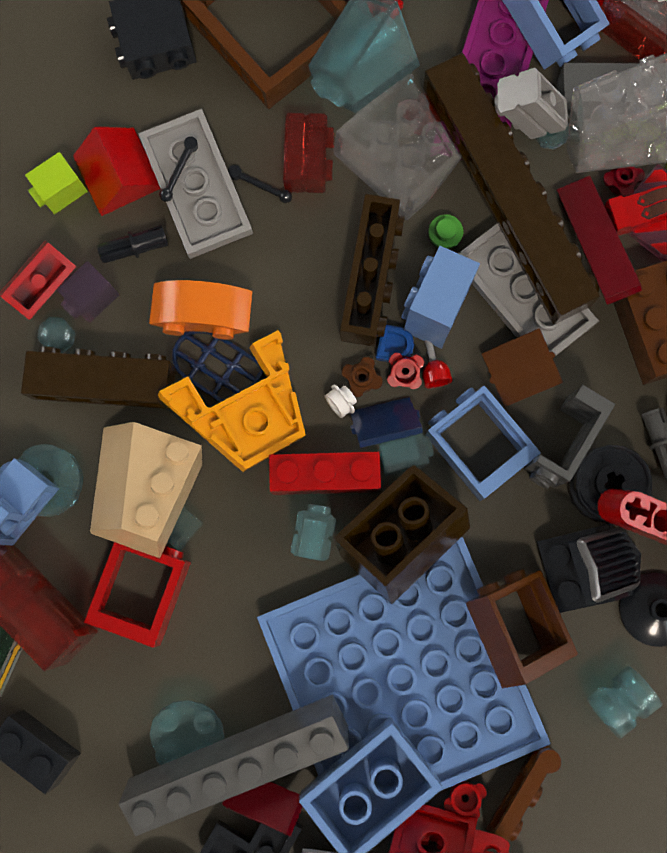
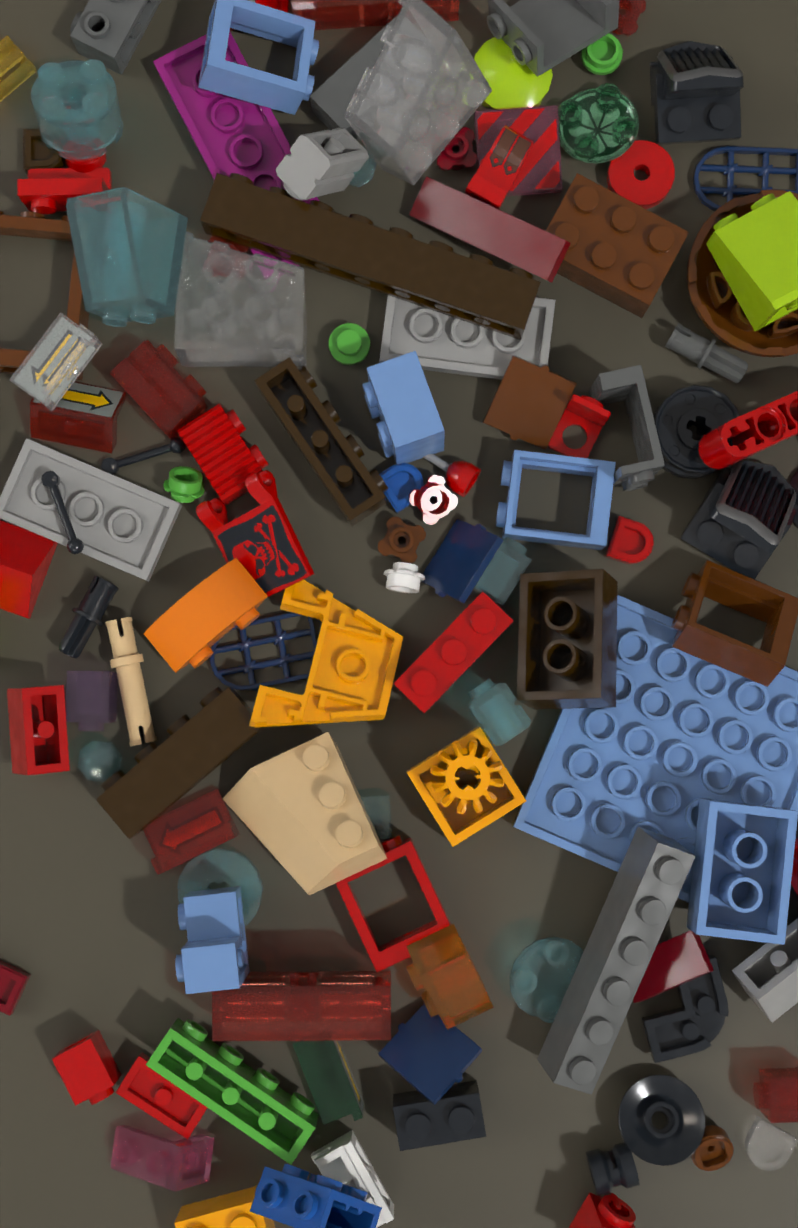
camera: 50 degrees left, 5 degrees up
(65, 427) = (190, 831): none -> clear red panel
(66, 706) = (430, 1054): none -> dark blue piece
(120, 305) = (130, 680): none -> tan pin
(123, 670) = (448, 976): none -> clear orange brick
(244, 123) = (81, 418): none -> clear red panel
(246, 565) = (467, 792): none -> light orange gear
(250, 562) = (455, 825): none -> light orange brick
(260, 77) = (56, 361): none -> clear panel
(266, 221) = (184, 484): none -> bright green plate
(277, 291) = (260, 537): none -> red flag
(306, 224) = (221, 451): none -> red brick
(502, 513) = (629, 541): none -> red tile
(550, 407) = (588, 415): none -> red bracket

